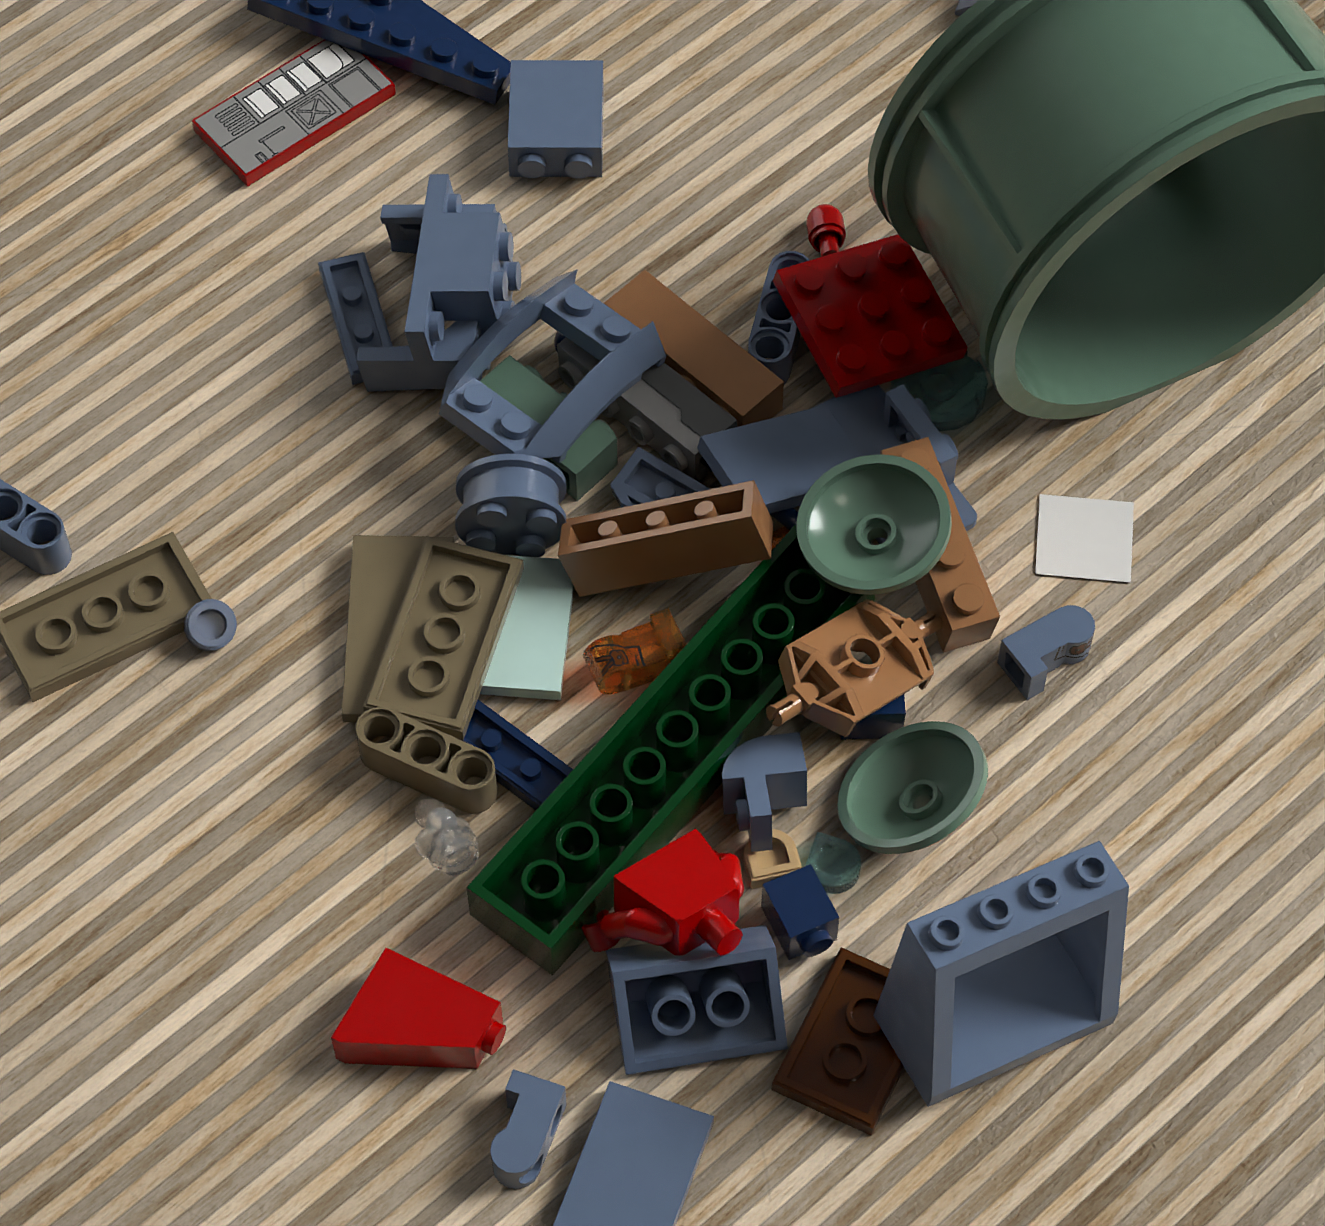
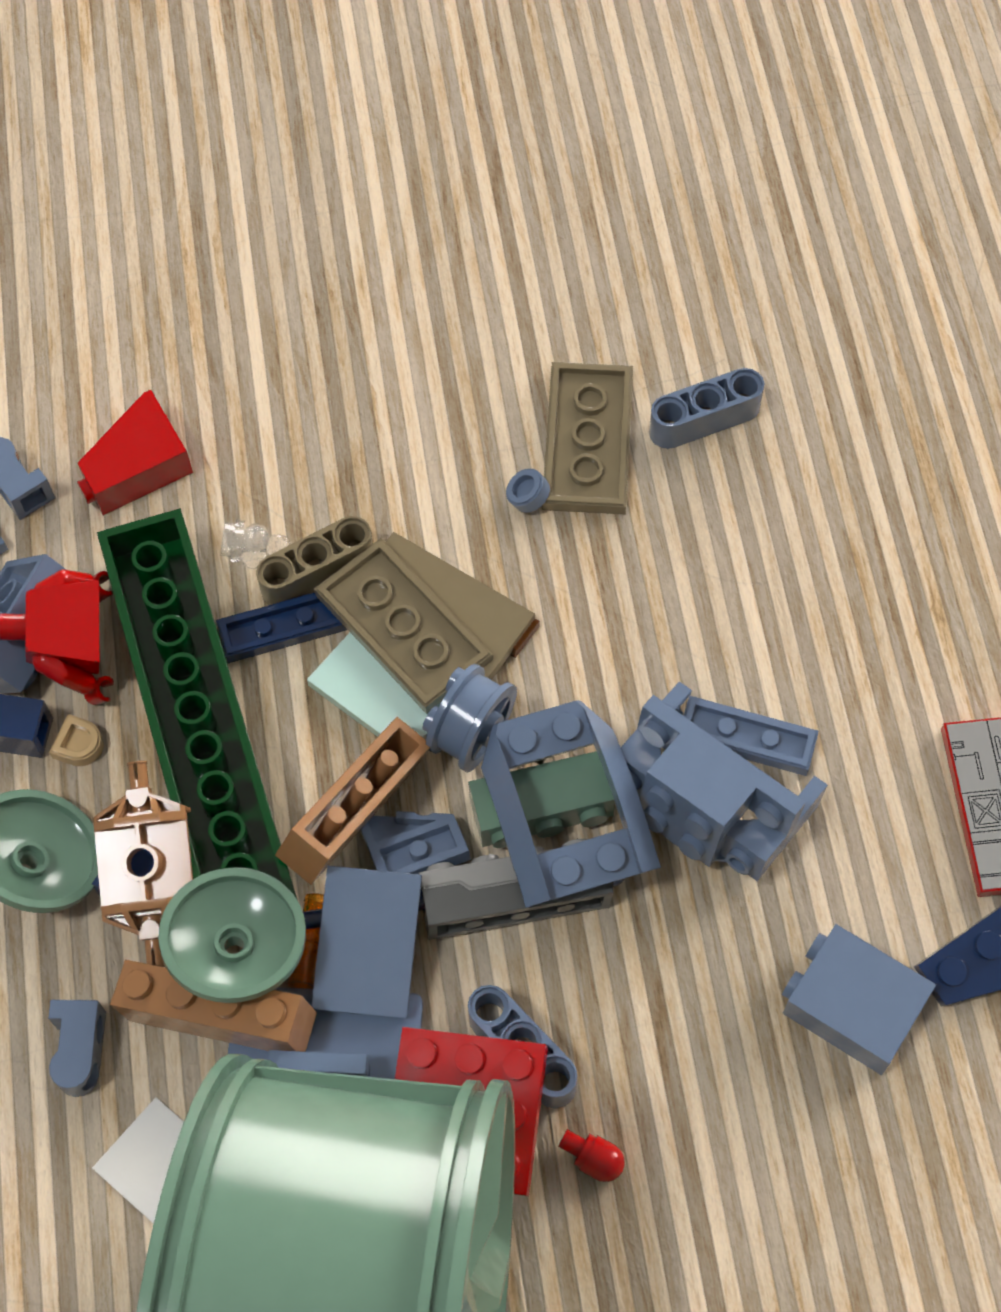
camera: 125 degrees right, 5 degrees up
(635, 654) = (295, 747): clear orange leg -> none
(701, 351) = (534, 951): medium nougat brick -> none
(764, 777) = (105, 736): sand blue brick -> none
(835, 863) = (42, 774): clear light blue tile -> none

